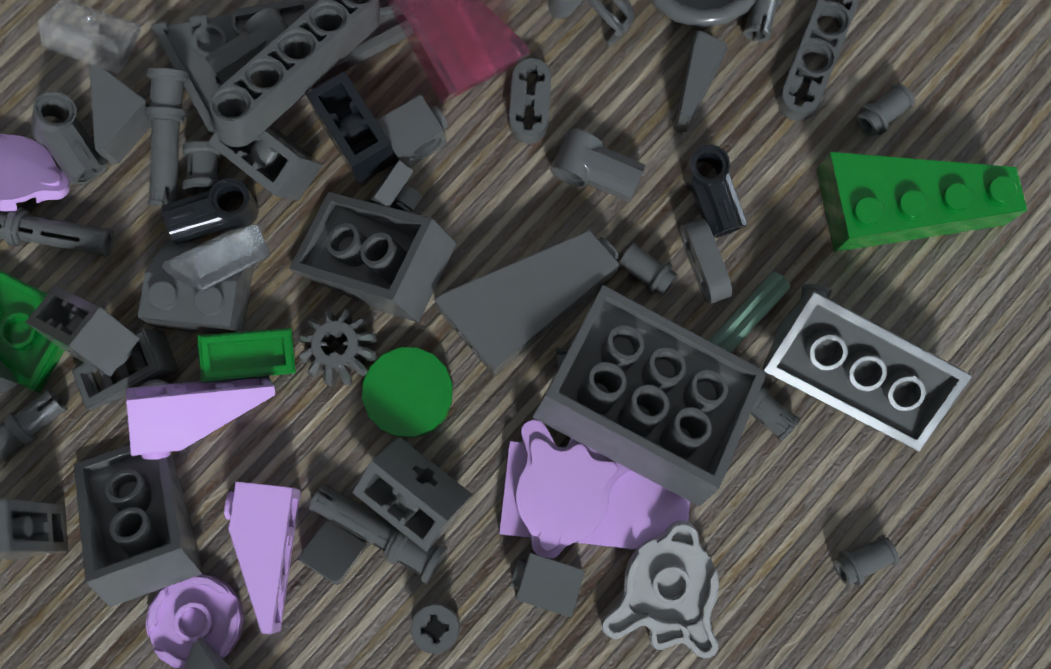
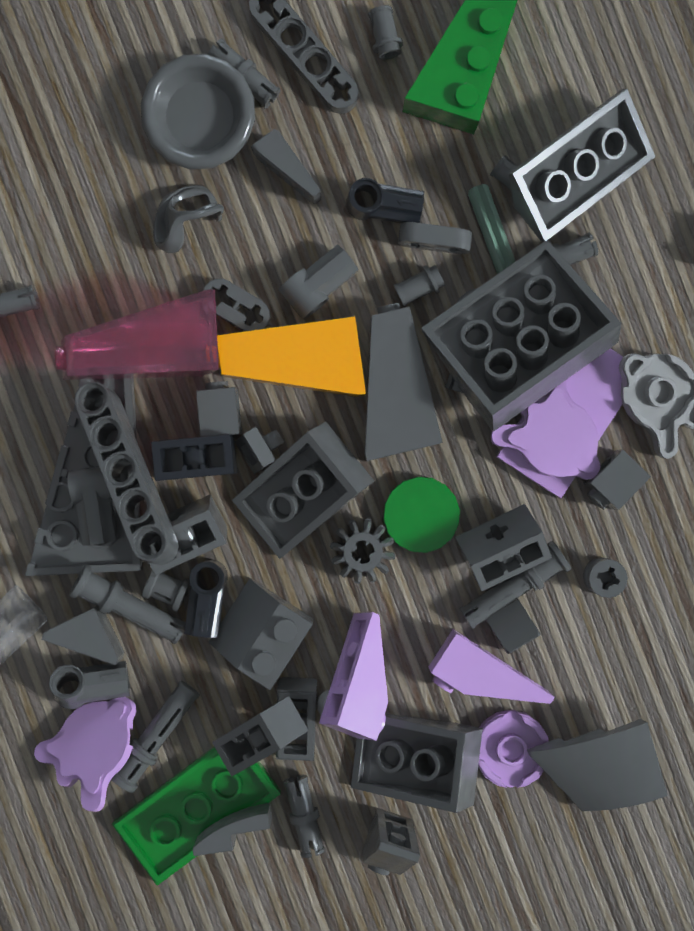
camera: 60 degrees left, 10 degrees up
(218, 257) = (250, 608): clear slope -> none
(245, 355) = (334, 622): green tile -> none
(513, 186) = (301, 356): none -> light orange slope

